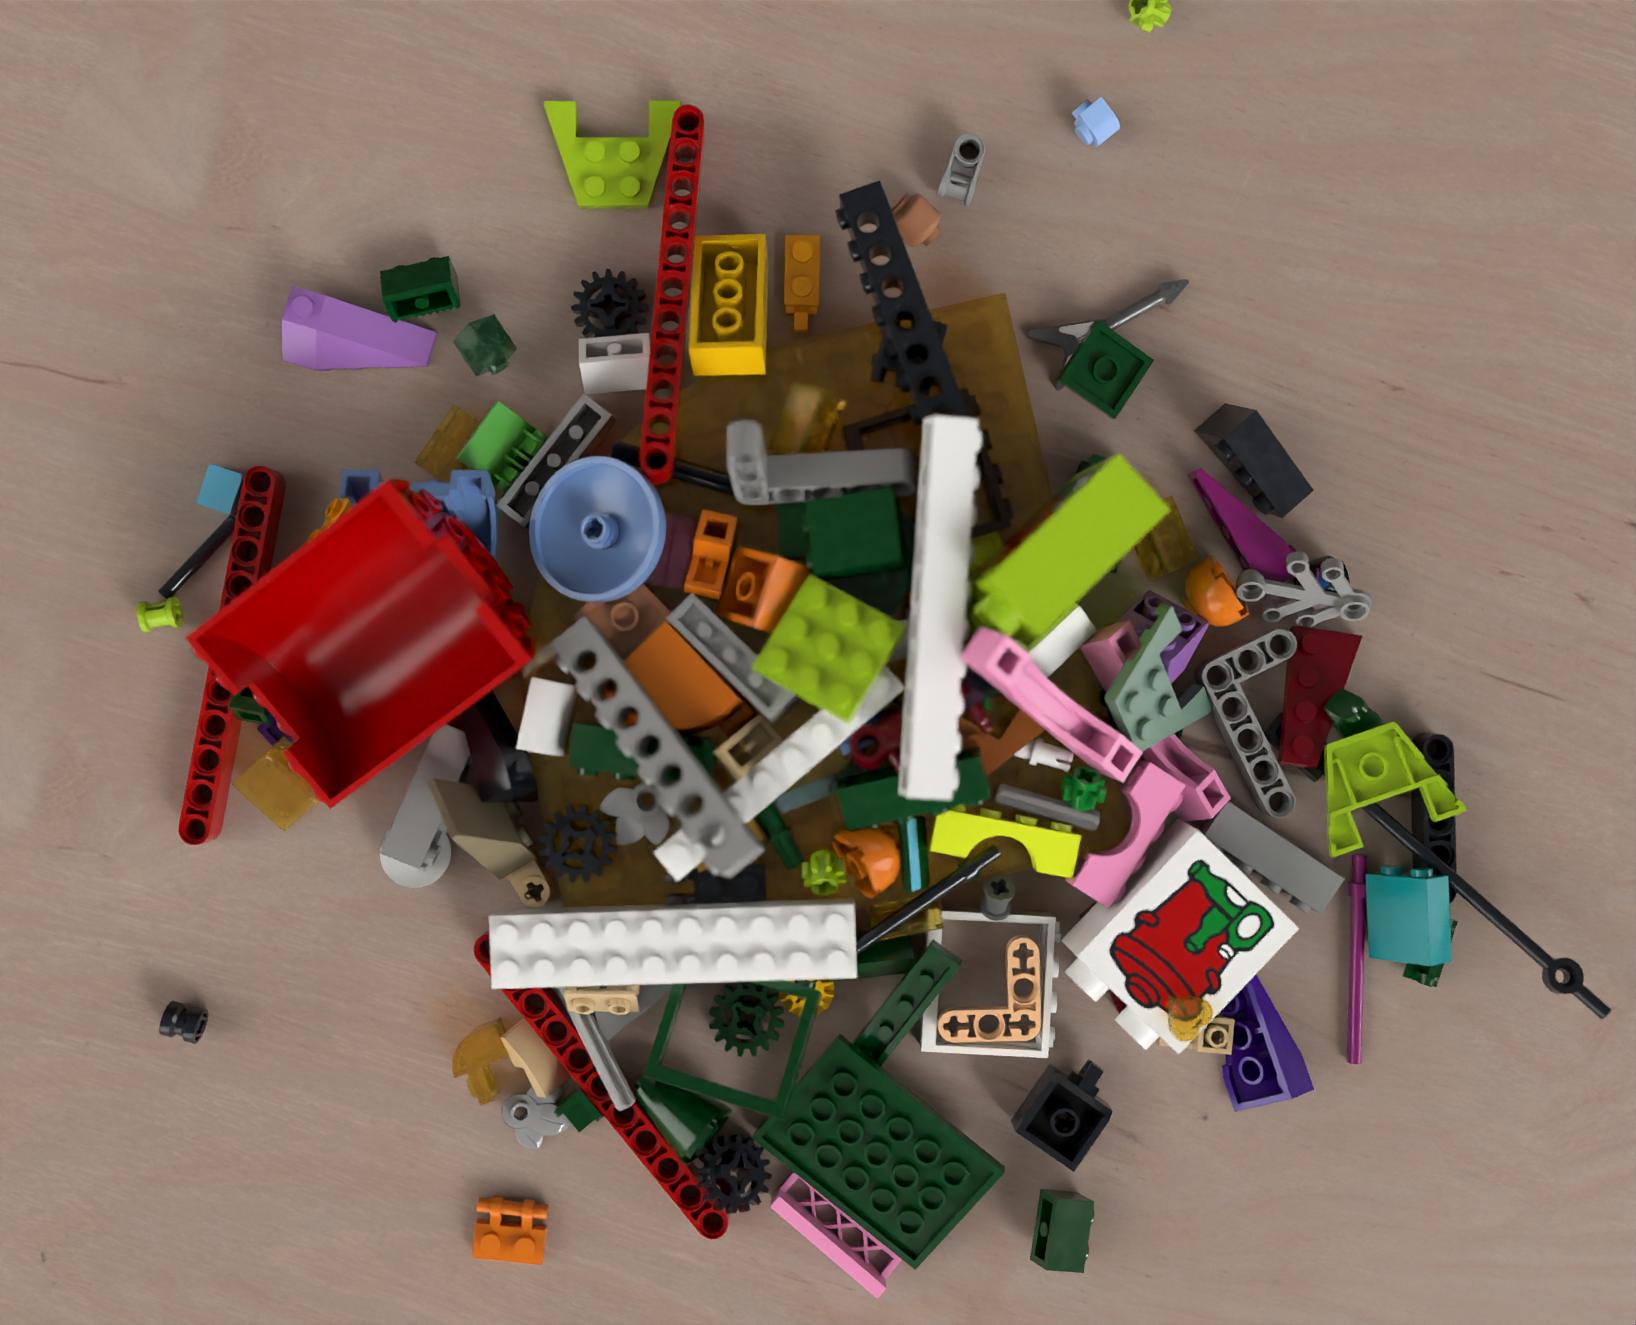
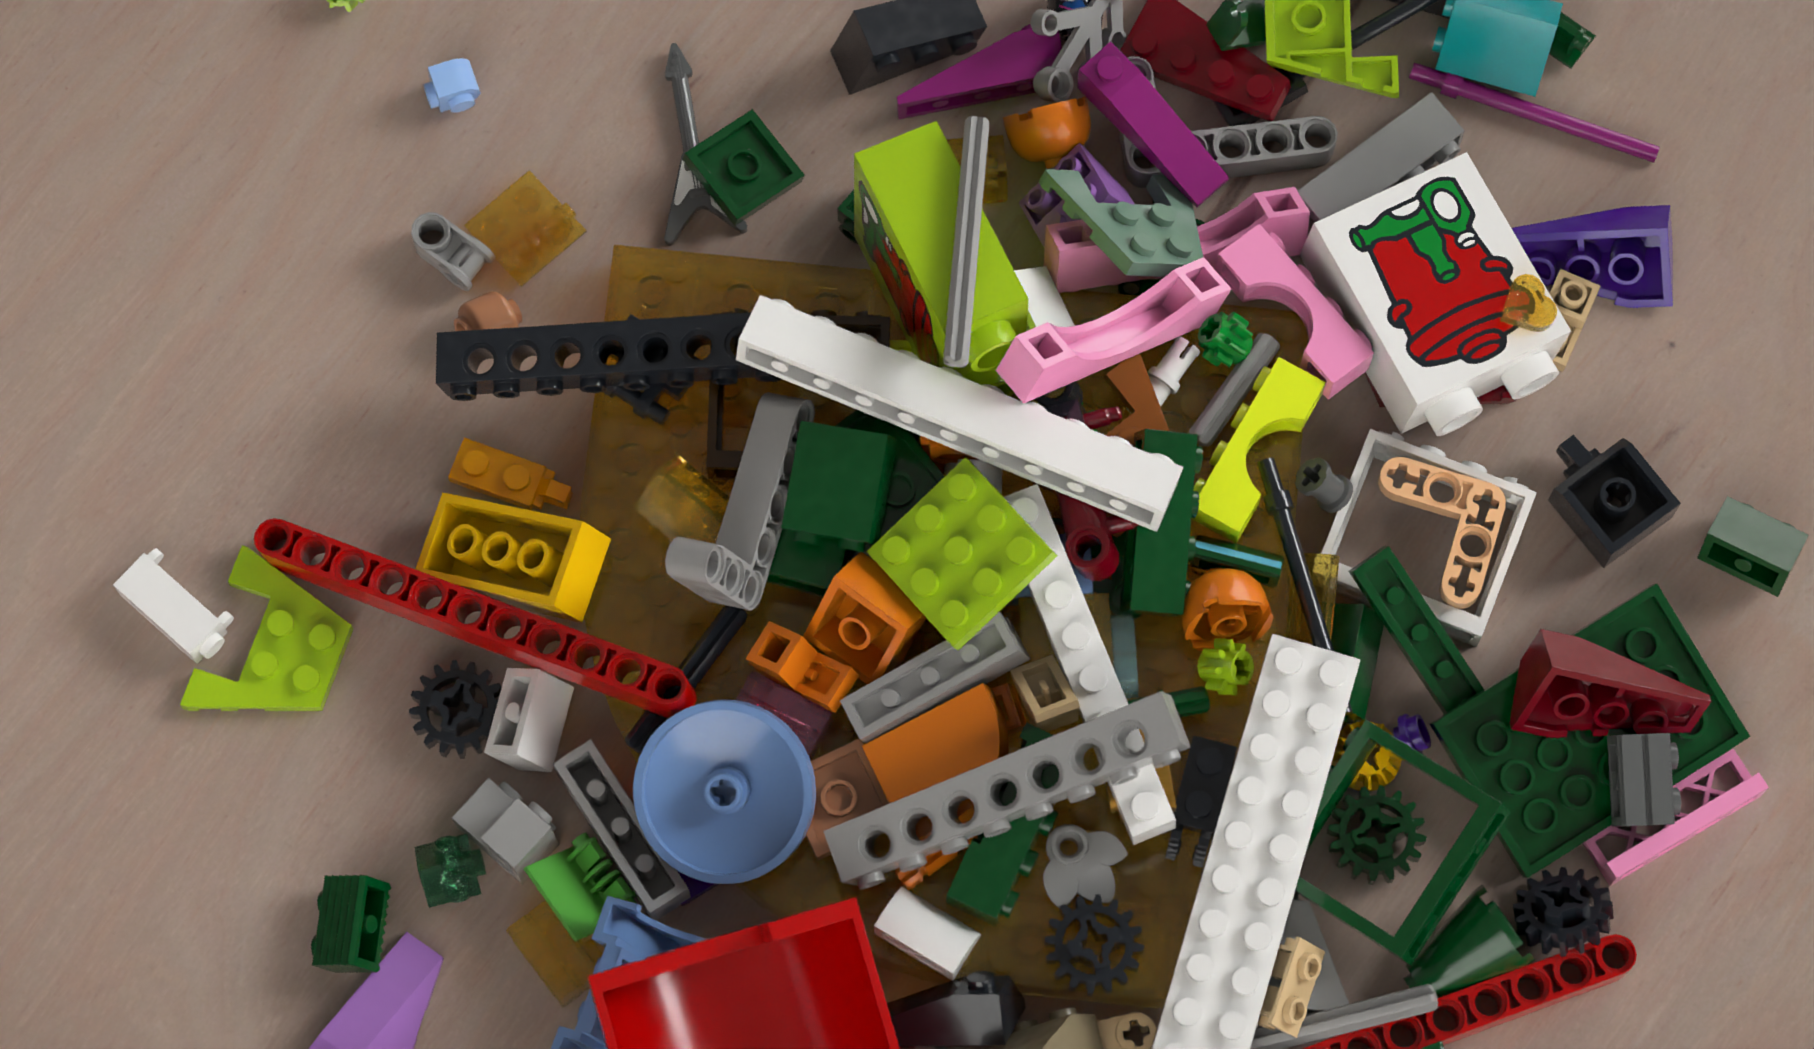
camera: 70 degrees left, 15 degrees down
(529, 377) = (507, 827): none -> light grey brick
(613, 66) = (172, 608): none -> white brick
(831, 1019) = (1413, 732): none -> dark purple plate
(849, 1205) = (1642, 779): none -> dark grey brick
(905, 1149) = (1582, 686): none -> dark red wedge
(1001, 221) = (526, 228): none -> clear yellow hinge
(1071, 569) = (966, 242): none -> light grey axle
(1243, 671) = (1150, 123): none -> magenta slope

